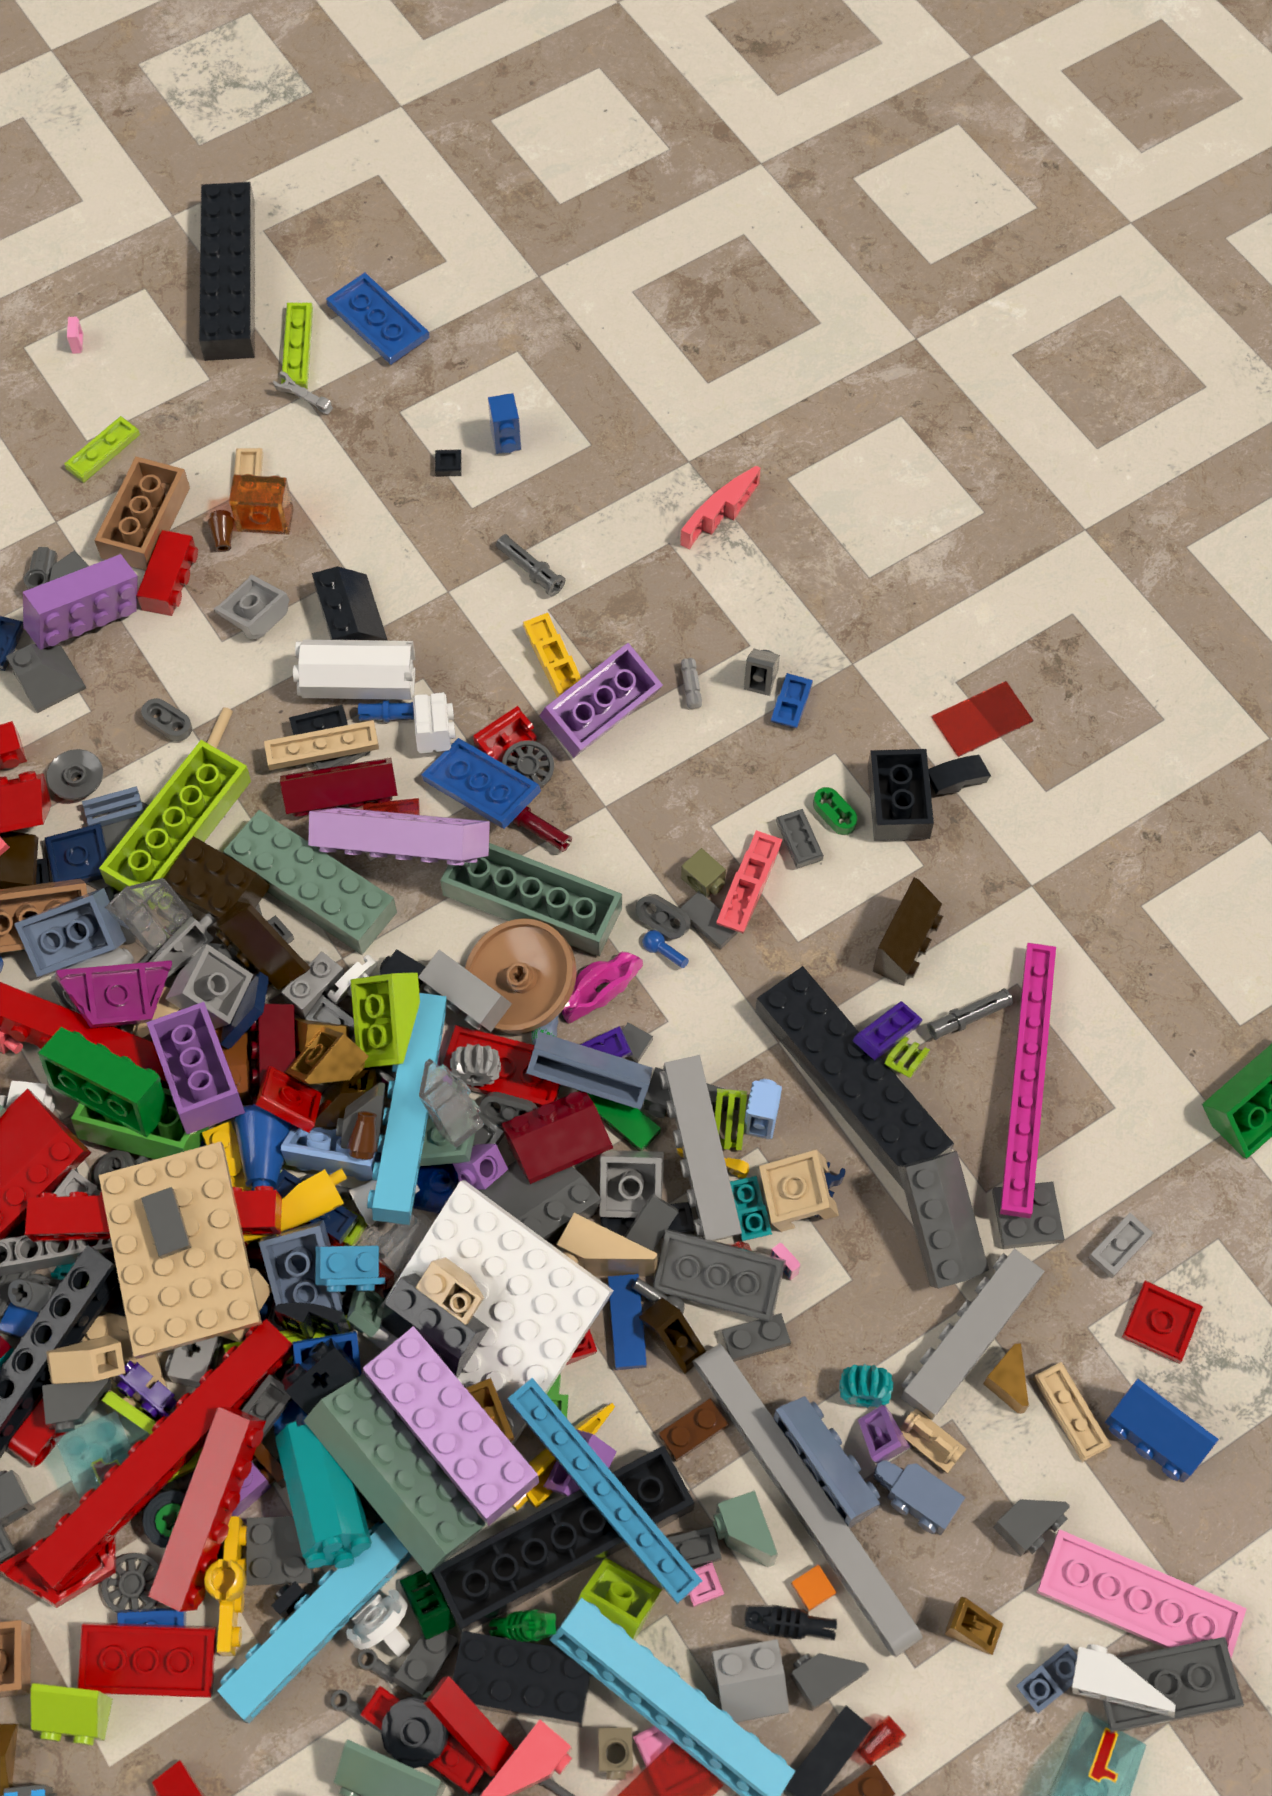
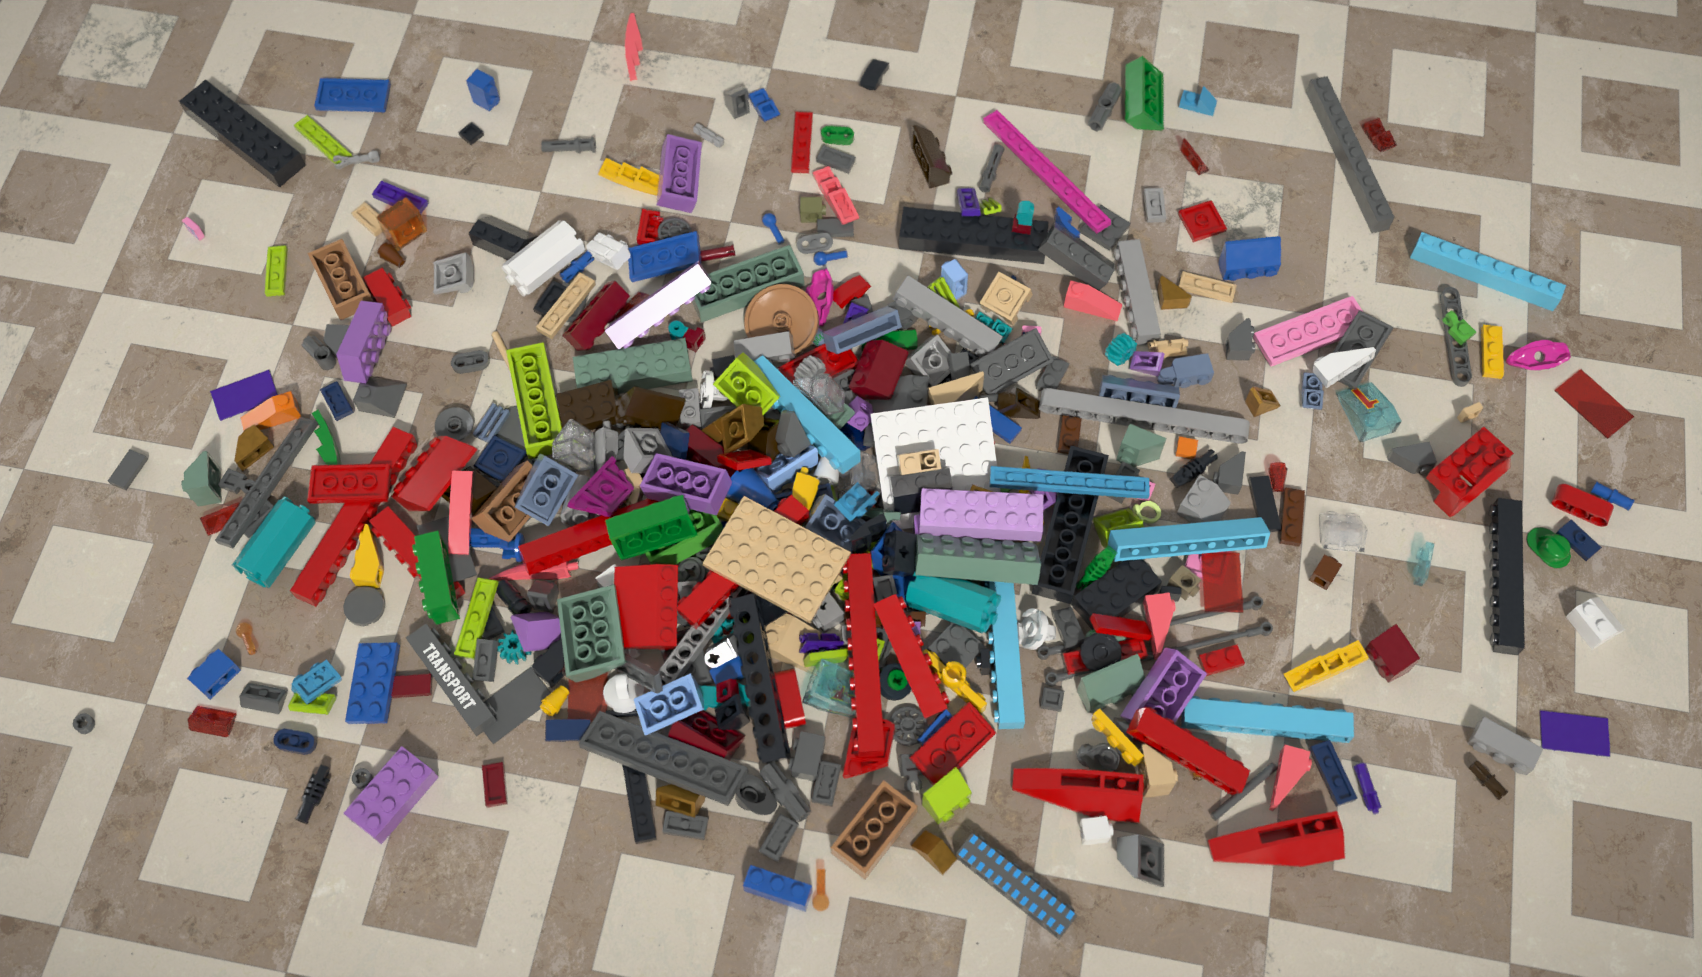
camera: 45 degrees left, 0 degrees up
(71, 1637) = (909, 770): none -> dark grey plate
(72, 1402) = (796, 675): dark grey slope -> none
(86, 1361) = (787, 647): tan slope -> none
(166, 1222) = (761, 549): dark grey tile -> none
(298, 474) = (391, 195): none -> dark purple plate
(315, 1725) = (1052, 699): none -> dark grey tile
(363, 1137) = (803, 440): reddish brown cone -> none
(405, 889) = (693, 338): none -> leg
(436, 1619) = (1055, 606): dark green slope -> none
(583, 1745) = (1175, 592): none -> black tile
(643, 1010) = (852, 288): none -> red slope
(644, 844) = (769, 220): none -> blue bar
(659, 1619) = (1137, 508): none -> yellowish green piece
(786, 783) = (802, 142): none -> red tile
(900, 794) = (860, 102): black brick -> none
(903, 1293) = (1091, 301): none -> coral slope
(916, 1113) = (1023, 219): none -> teal leg
(979, 1165) = (1064, 220): none -> blue slope
(982, 719) = (855, 44): clear red window -> none
(1182, 1068) = (1105, 106): none -> dark grey piece
(1244, 1231) = (1193, 157): none -> clear red slope

